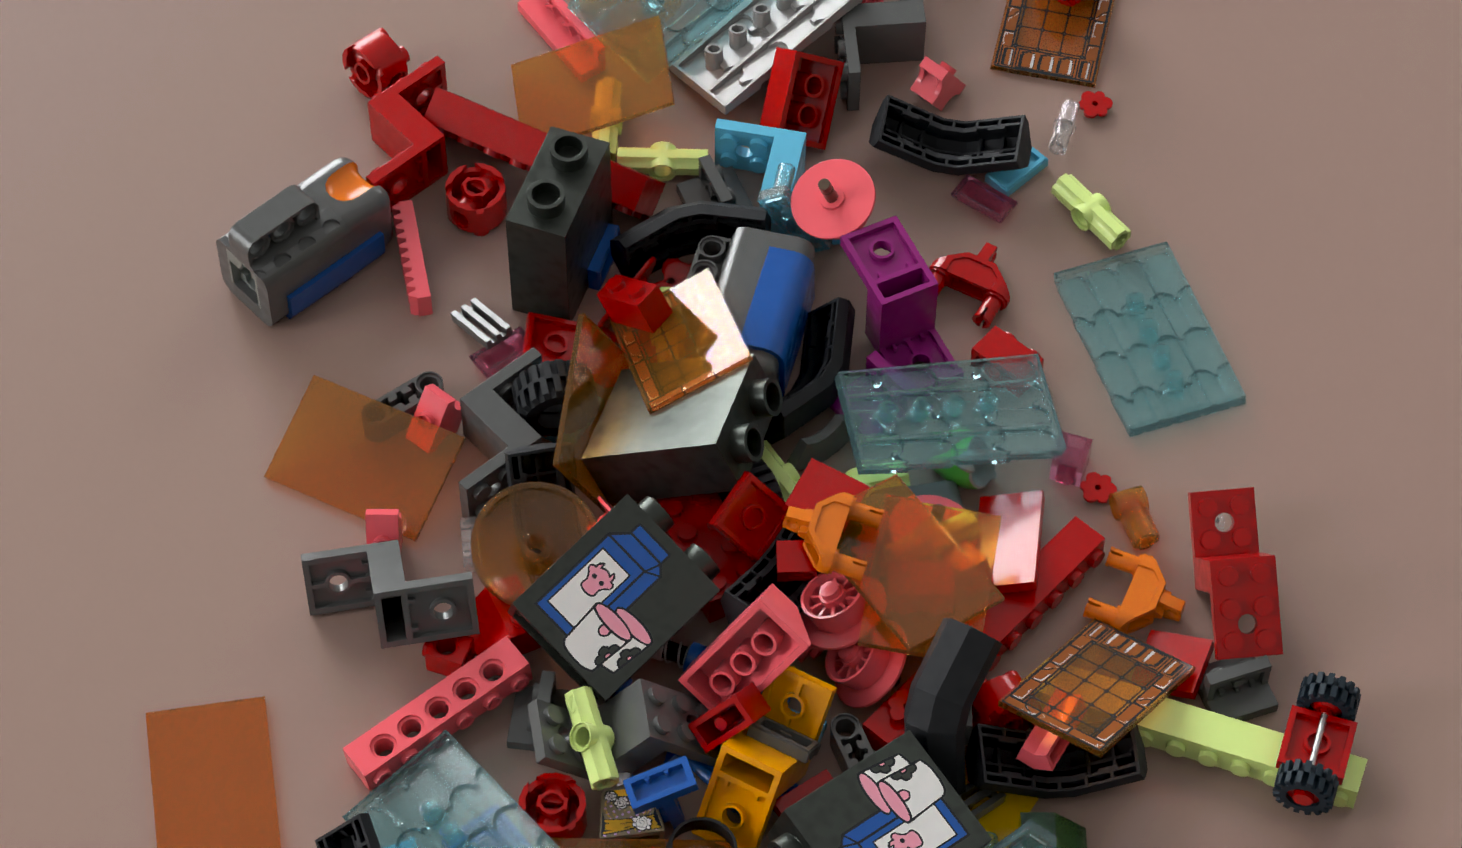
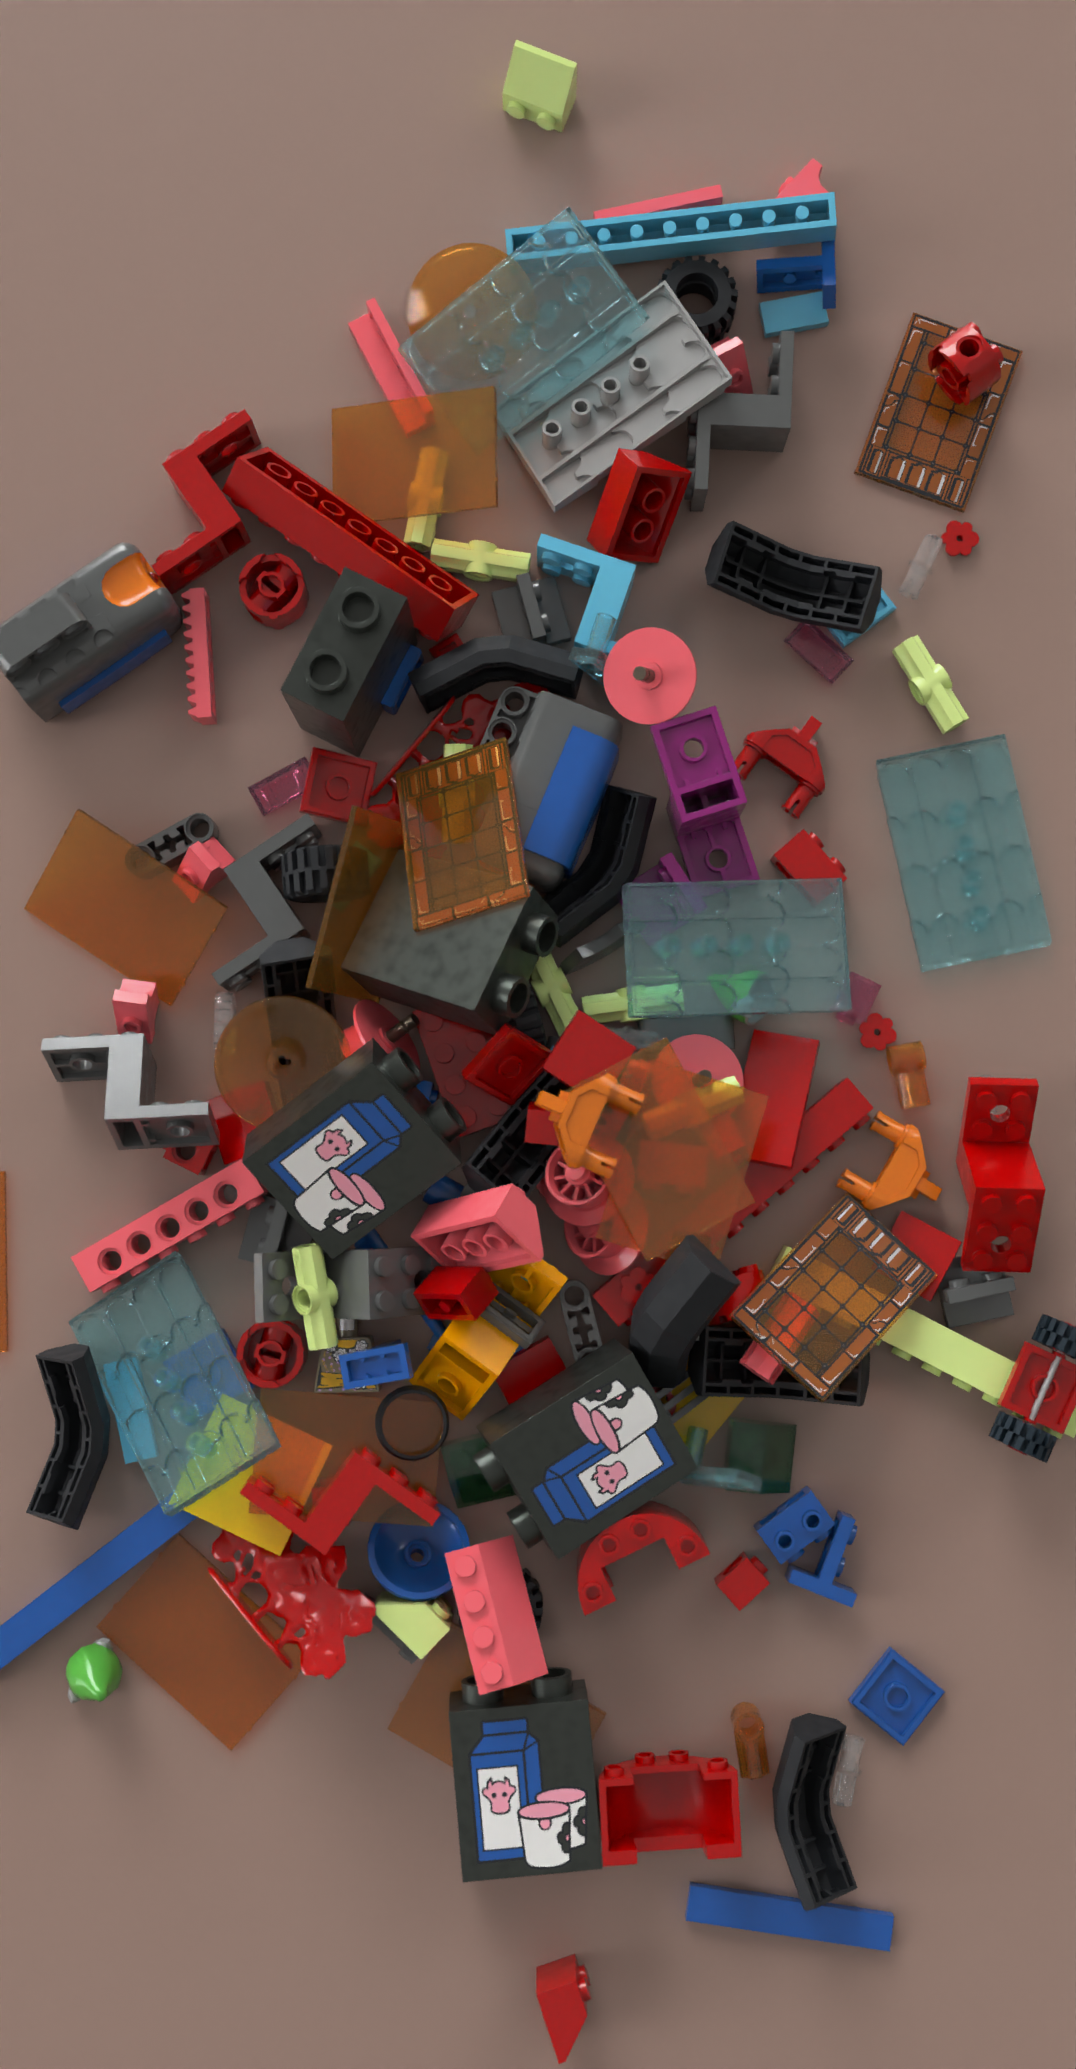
camera: 10 degrees right, 30 degrees up
(375, 62) = (183, 397): red brick -> none
(489, 316) = (251, 729): tile -> none
(634, 303) = (420, 774): red brick -> none
(937, 83) = (791, 497): coral brick -> none

